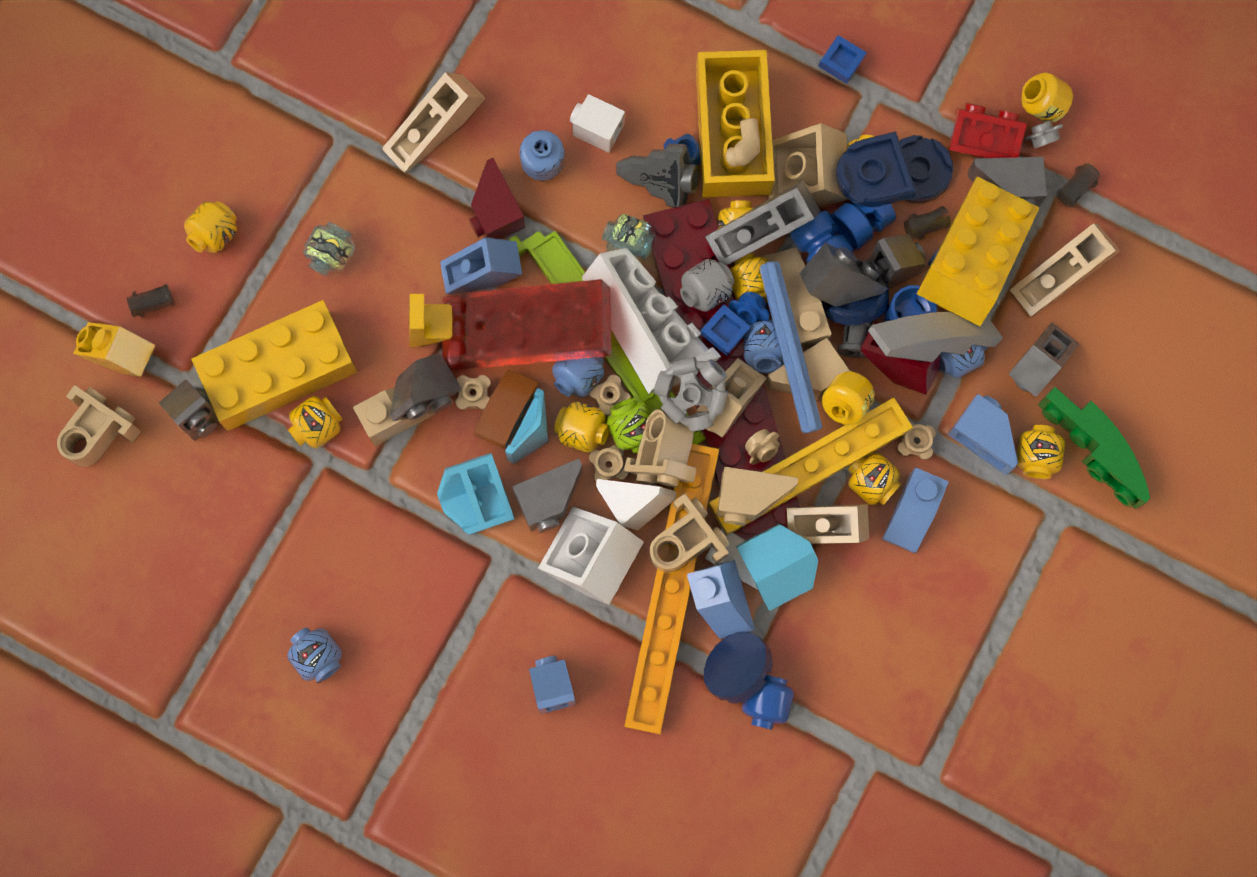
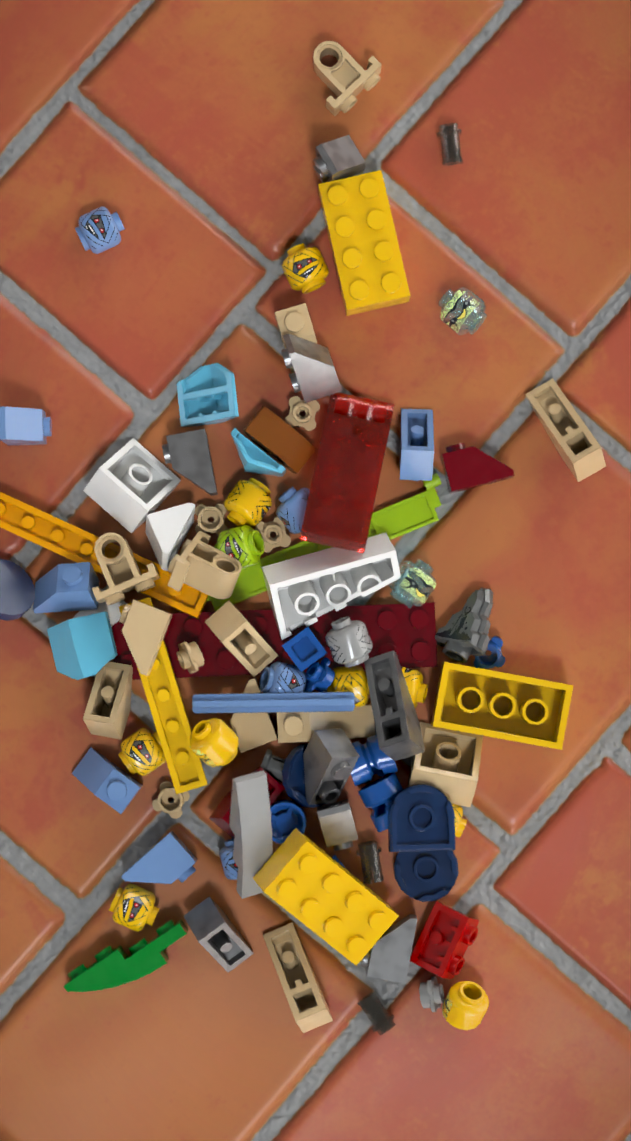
camera: 105 degrees right, 10 degrees up
(114, 348) = (411, 104): yellow slope -> none
(210, 227) = (507, 209): yellow head -> none
(428, 322) = (371, 387): yellow slope -> none
(542, 155) = (500, 528): medium blue head -> none
(597, 122) = (532, 579): white brick -> none
(693, 392) = (243, 601): light grey piece -> none
(748, 147) = (466, 707): tan arm -> none
(842, 59) = (547, 824): blue plate -> none

